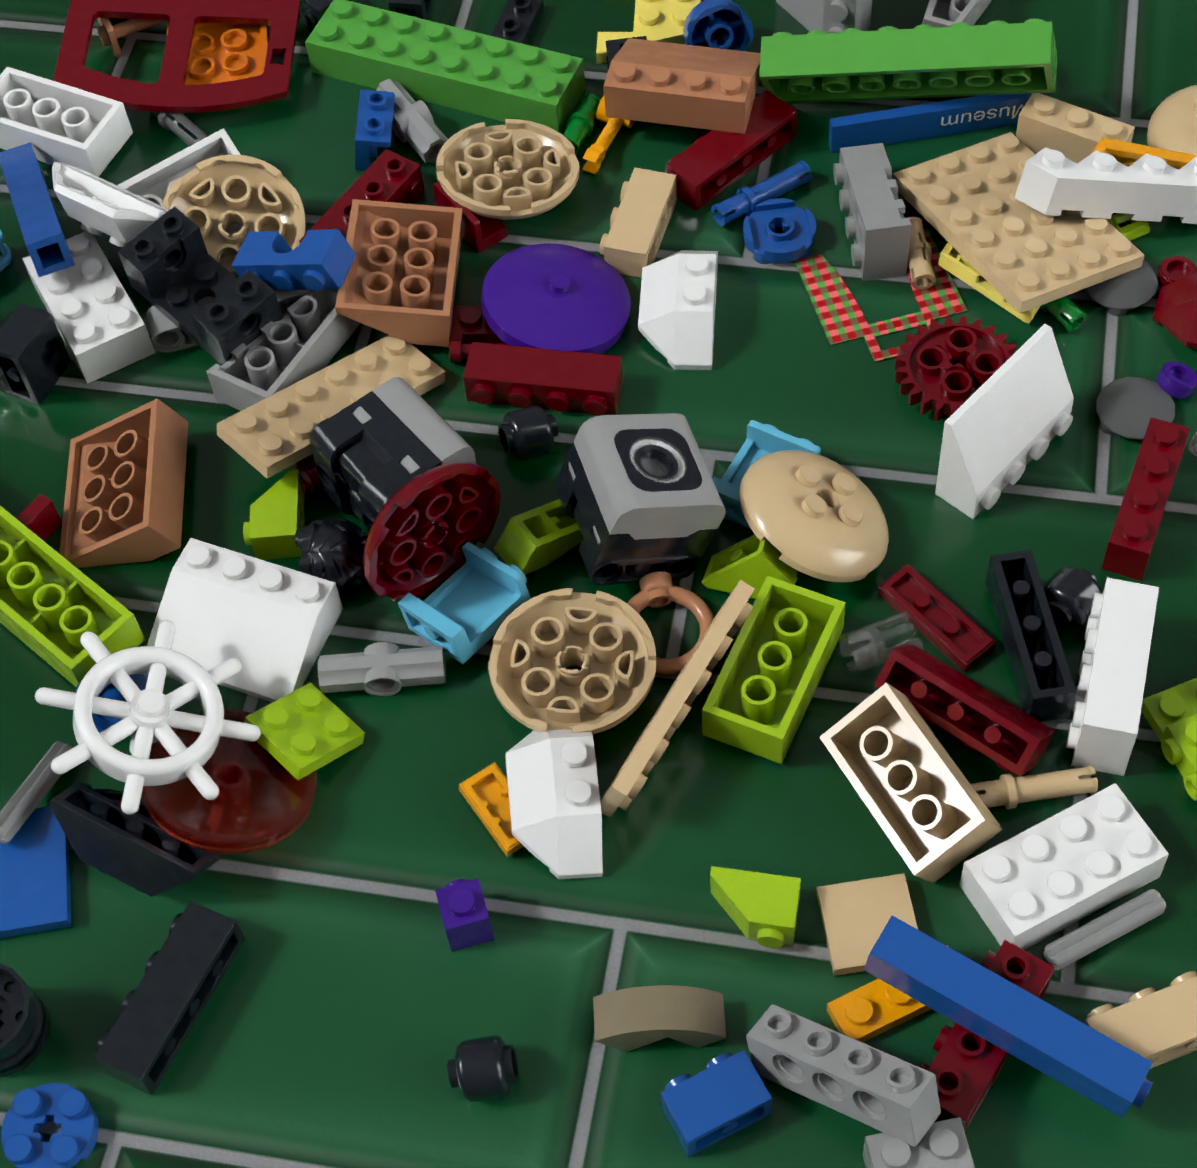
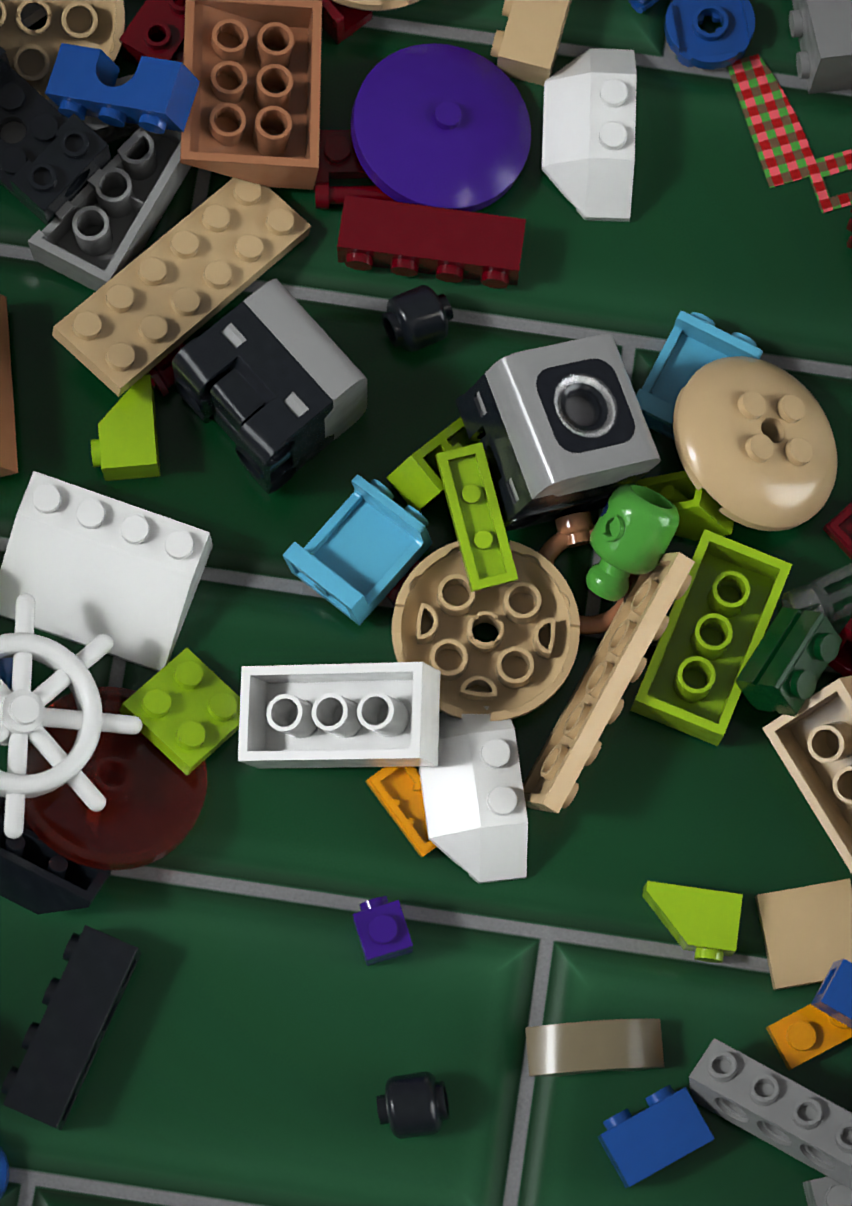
camera: 10 degrees left, 20 degrees up
(332, 552) = (201, 484): black hair -> none
(382, 669) = (267, 632): light grey piece -> none
(425, 525) = (317, 473): dark red brick -> none
(436, 724) = (339, 715): none -> white brick
(566, 565) = (476, 517): none -> lime plate
(701, 583) = (630, 538): none -> bright green piece
(841, 676) = (789, 661): none -> dark green brick

